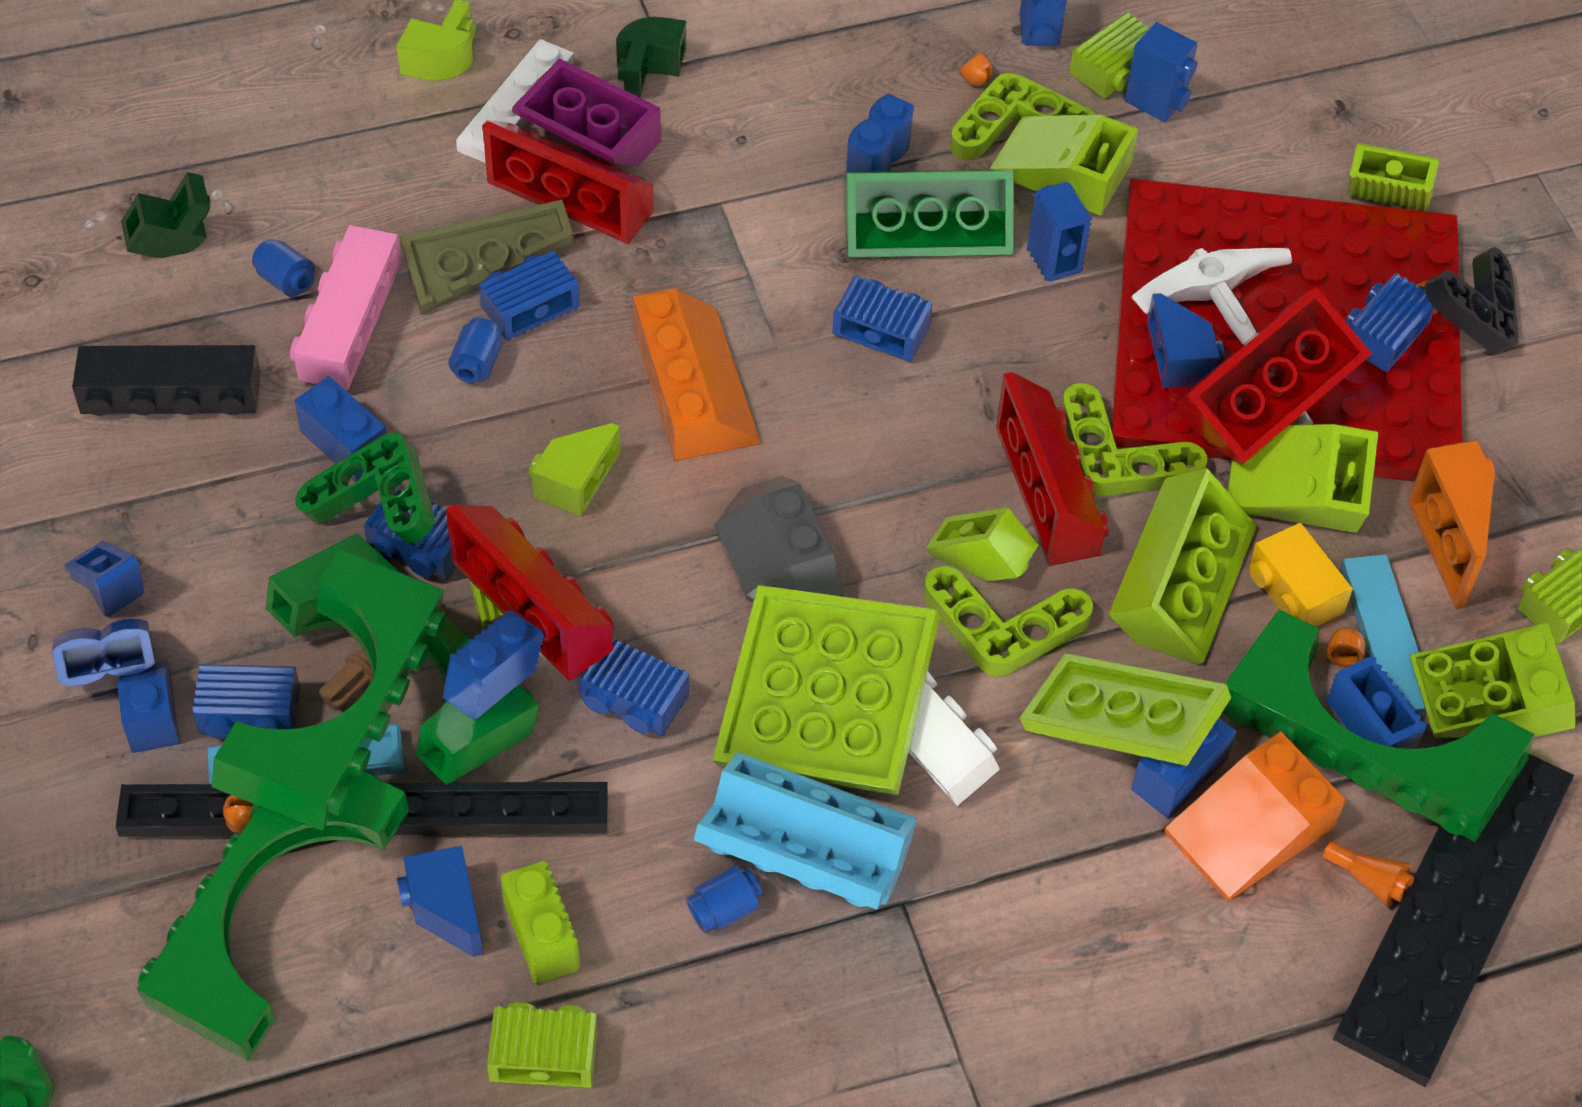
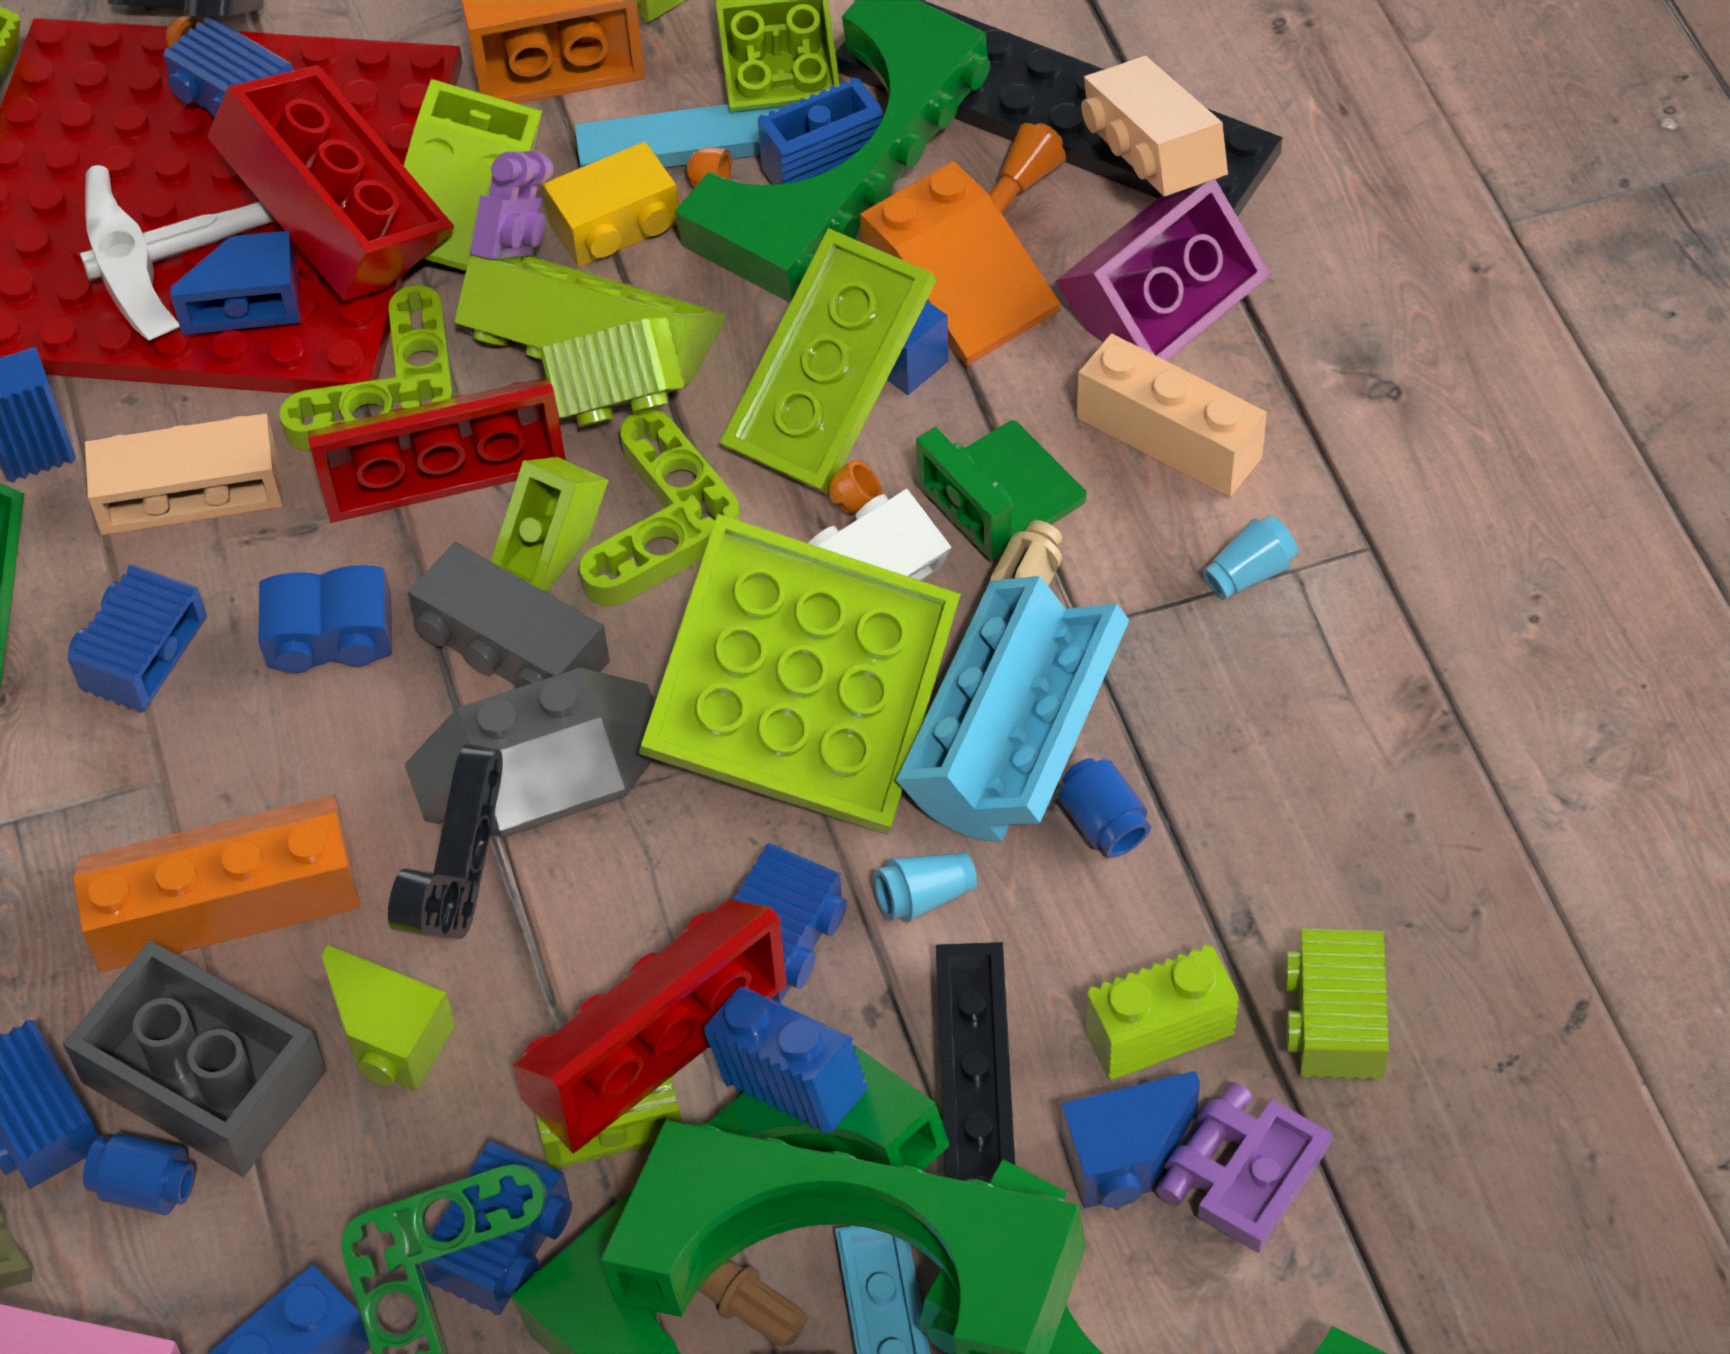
camera: 85 degrees left, 0 degrees up
(413, 988) = (1262, 1175): none -> medium lavender plate
(546, 367) = (196, 1057): none -> dark grey brick
(663, 778) = (922, 883): none -> medium azure cone
(667, 498) = (446, 899): none -> black beam
(889, 524) = (503, 621): none -> dark grey brick
(897, 420) = (325, 618): none -> blue brick
(944, 855) = (1031, 553): none -> tan arm
(961, 1020) = (1251, 557): none -> medium azure cone
(1021, 751) = (854, 486): none -> orange hinge
(1023, 328) = (183, 474): none -> light nougat brick
(1025, 837) = (995, 484): none -> green bracket
(1098, 963) = (1171, 415): none -> light nougat brick
(1109, 569) = (613, 369): none -> lime brick
(1254, 971) = (1166, 272): none -> magenta slope
(1256, 492) = (511, 216): none -> medium lavender plate
(1387, 943) = (1155, 125): none -> light nougat brick

